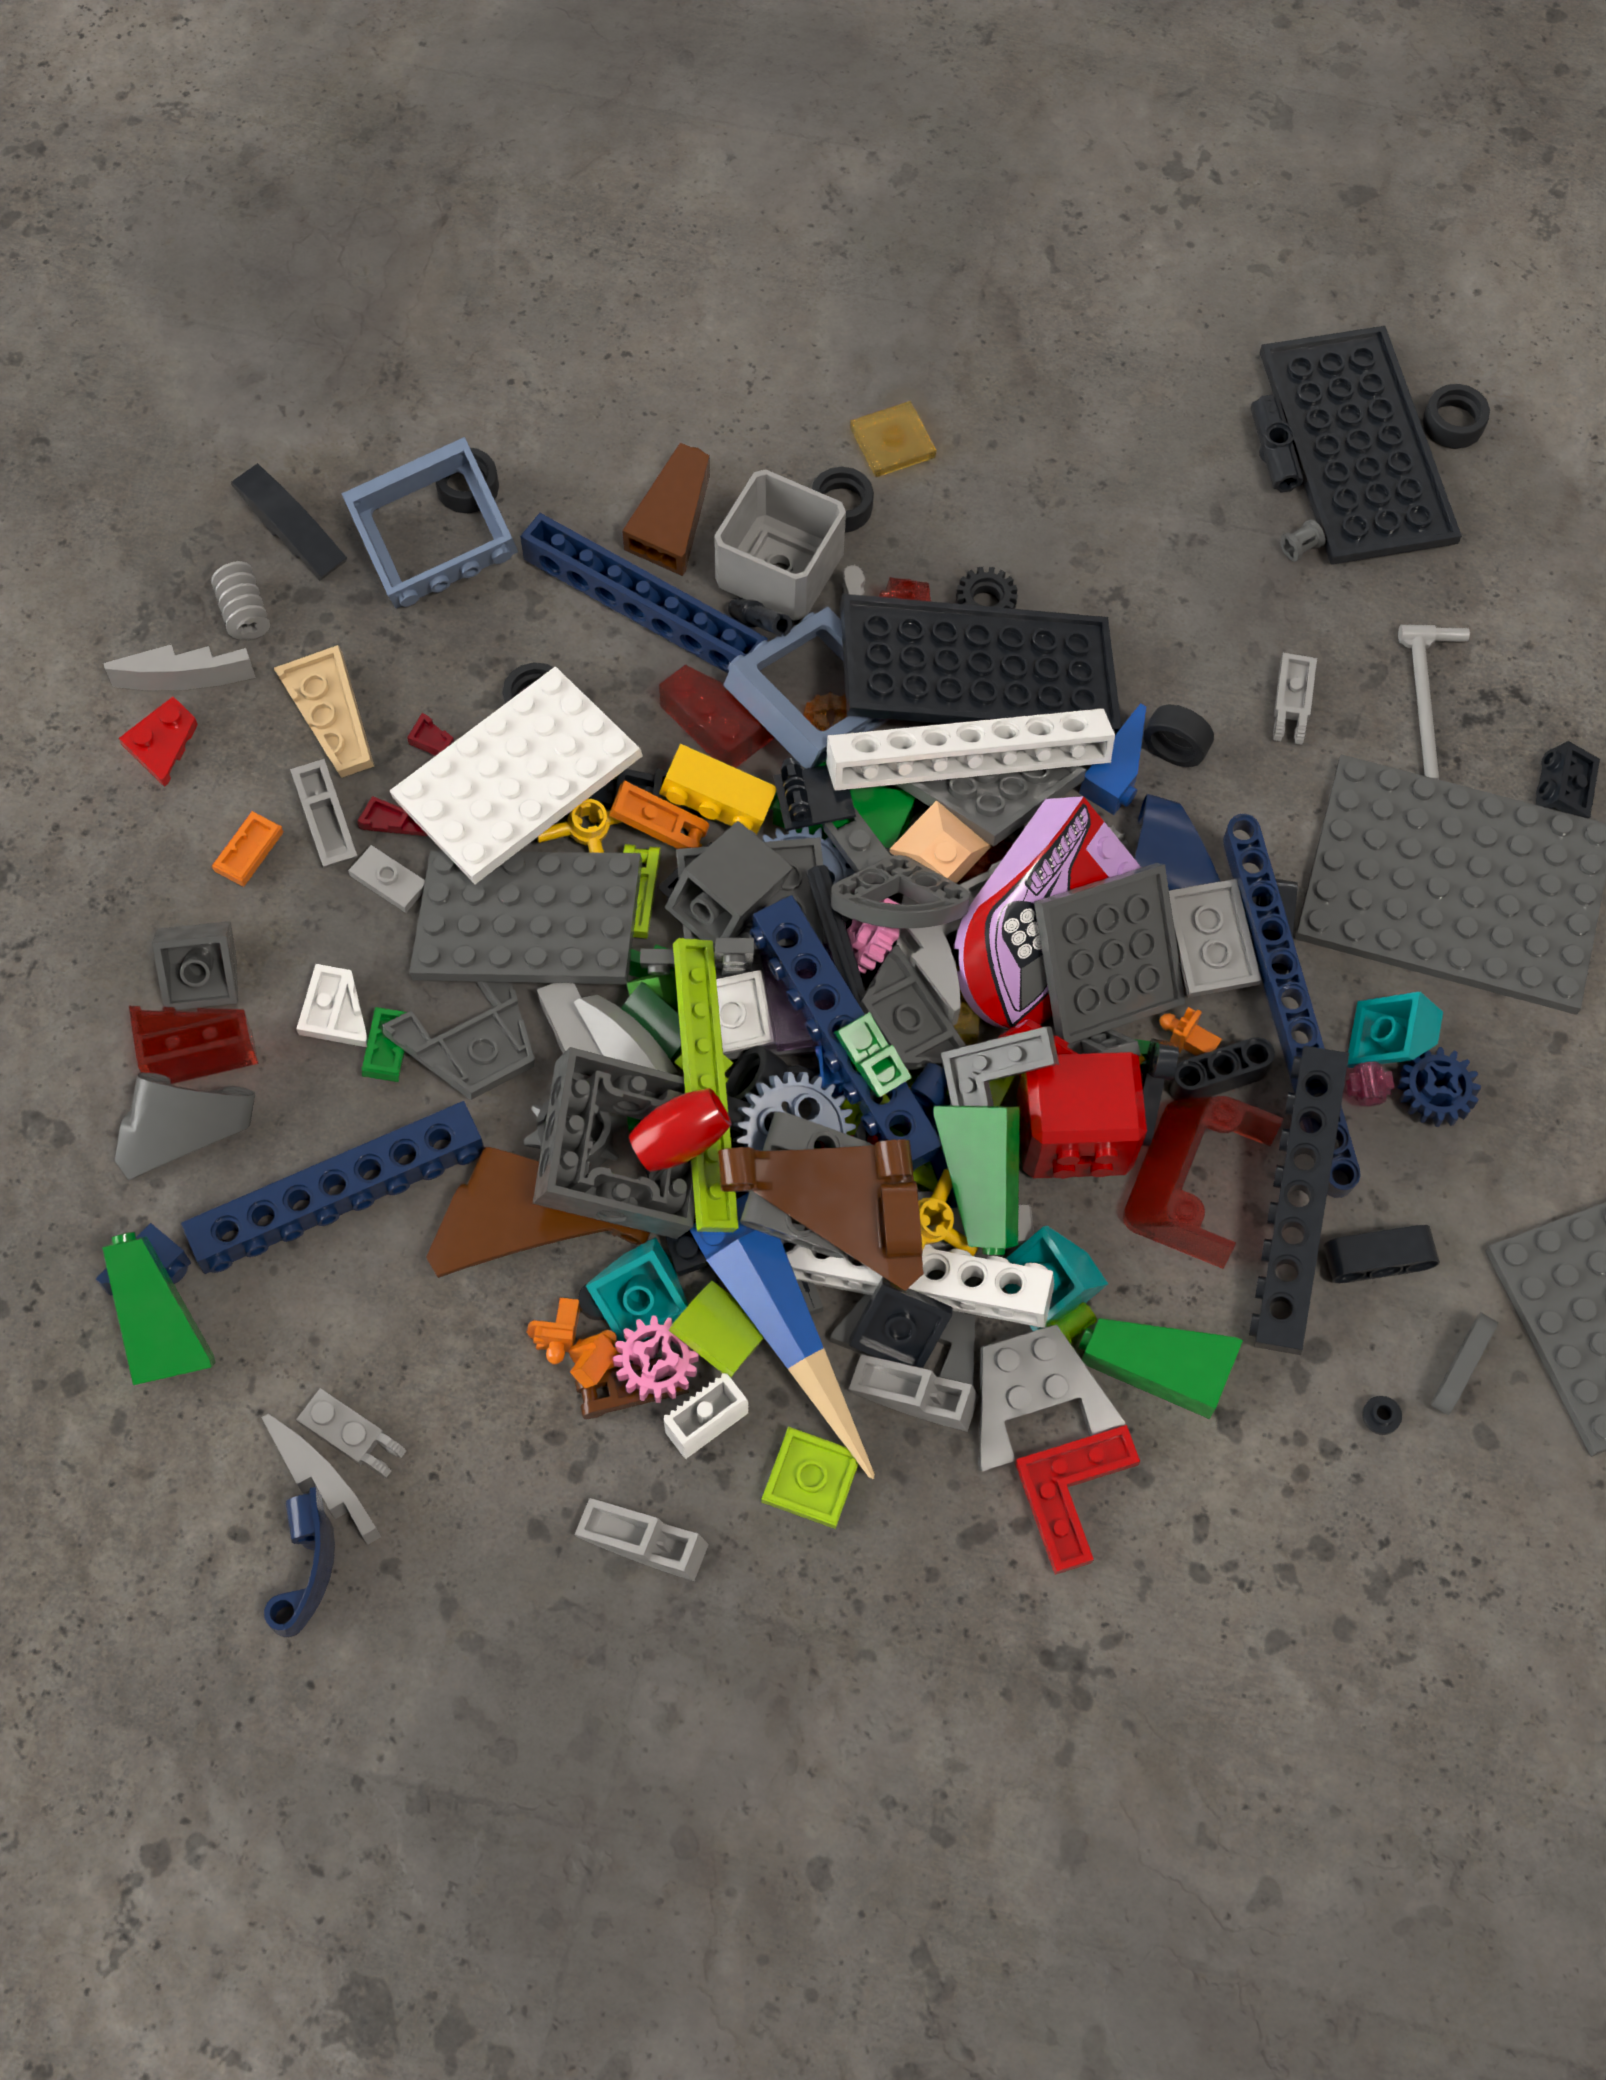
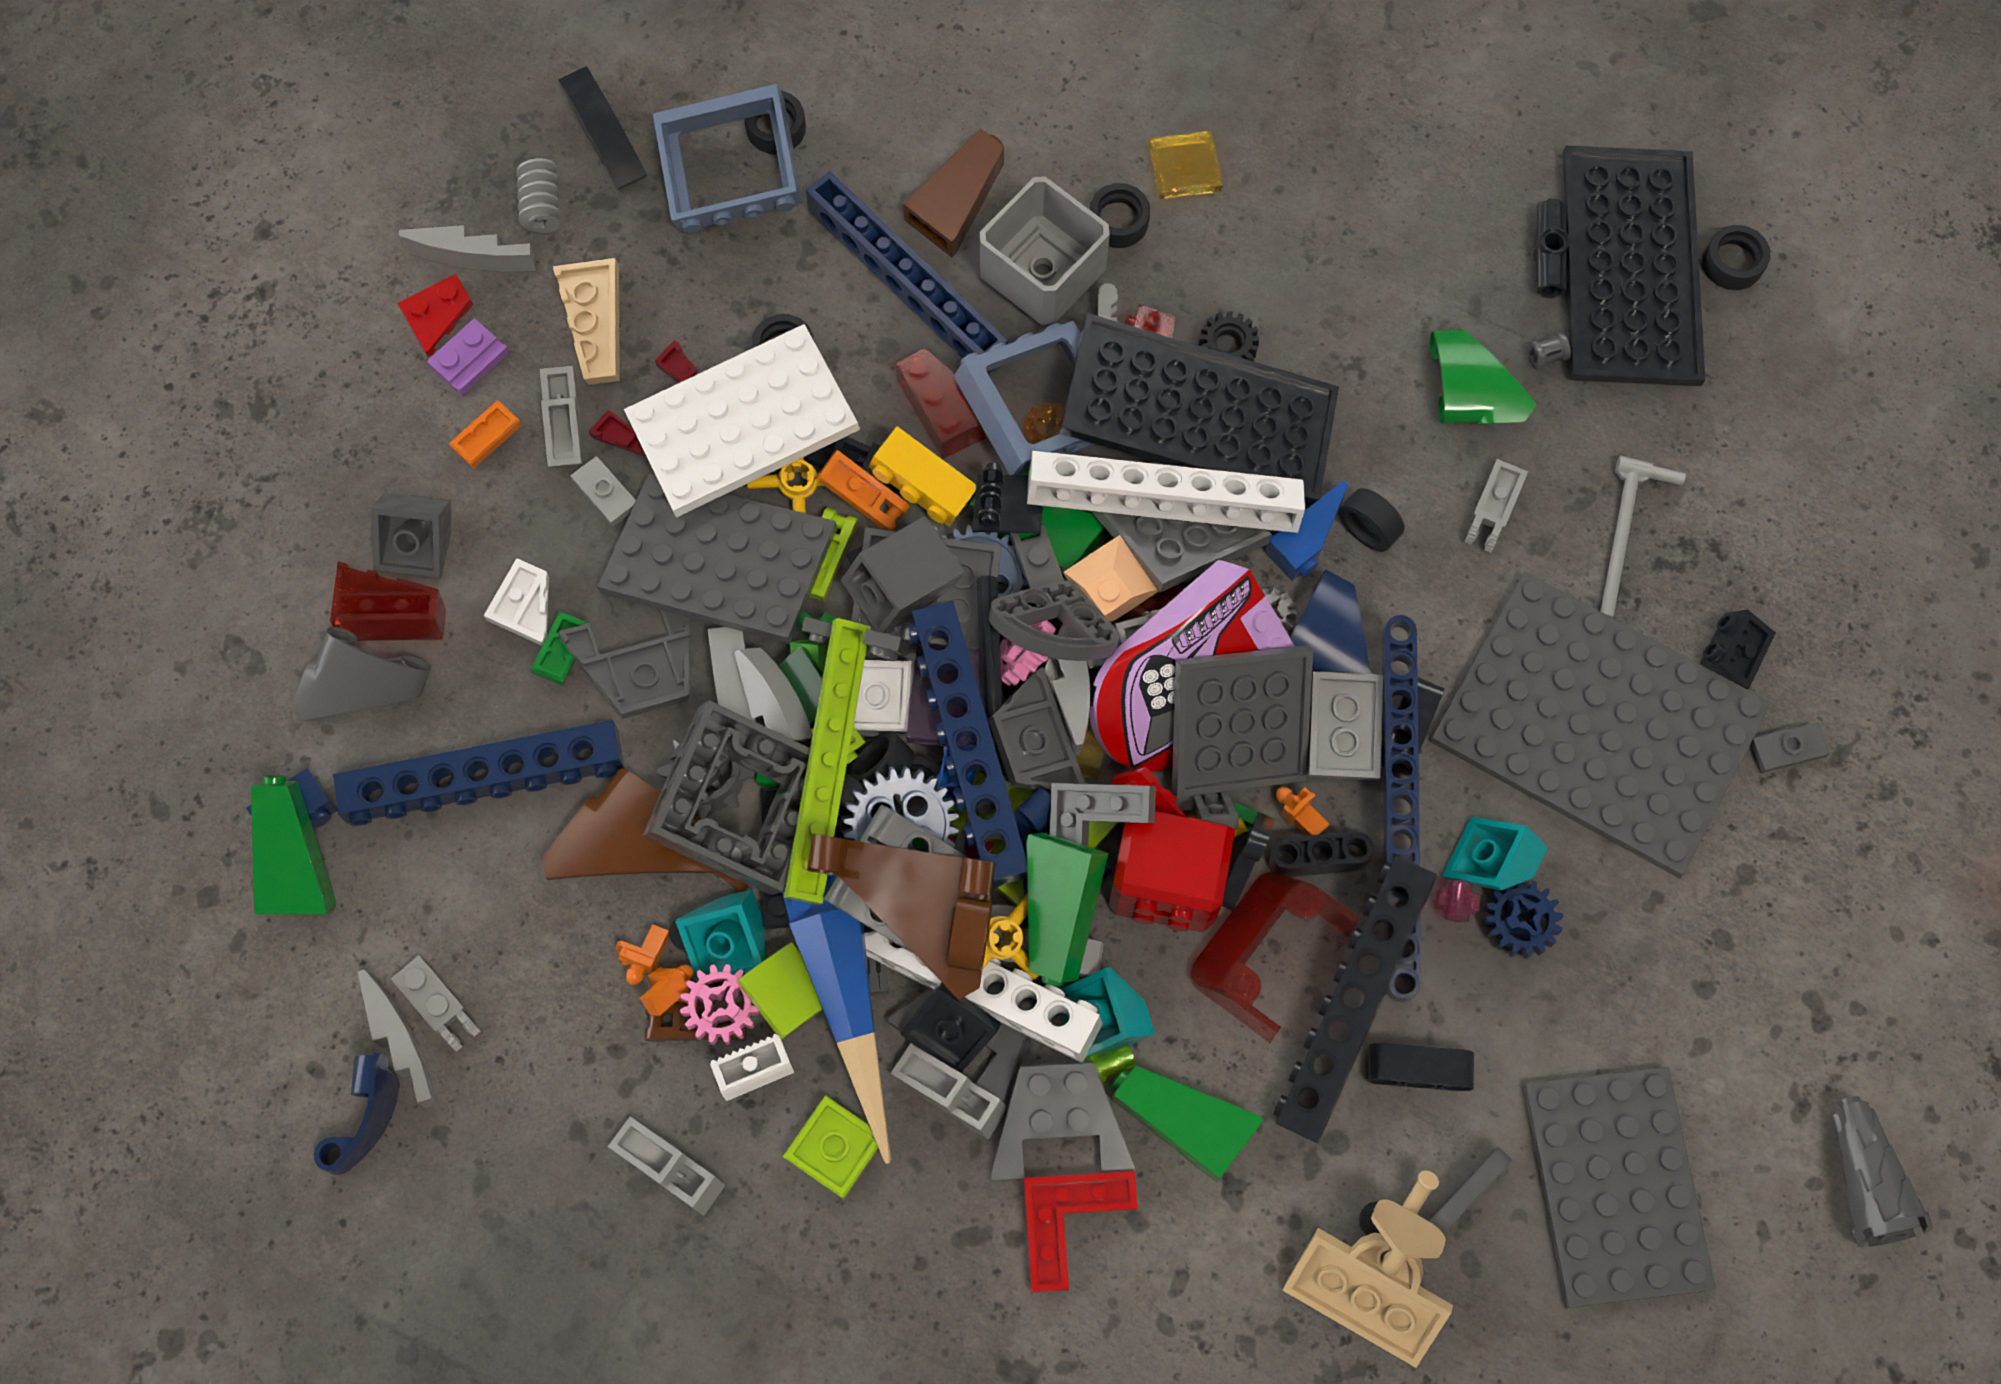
camera: 15 degrees right, 5 degrees up
(207, 776) = (468, 357): none -> medium lavender plate
(680, 1130) = (787, 802): red piece -> none
(754, 614) = (1003, 312): black pin -> none
(872, 1055) = (985, 771): slope -> none
(1242, 584) = (1476, 383): none -> green panel
(1399, 1483) = (1375, 1291): none -> tan plate

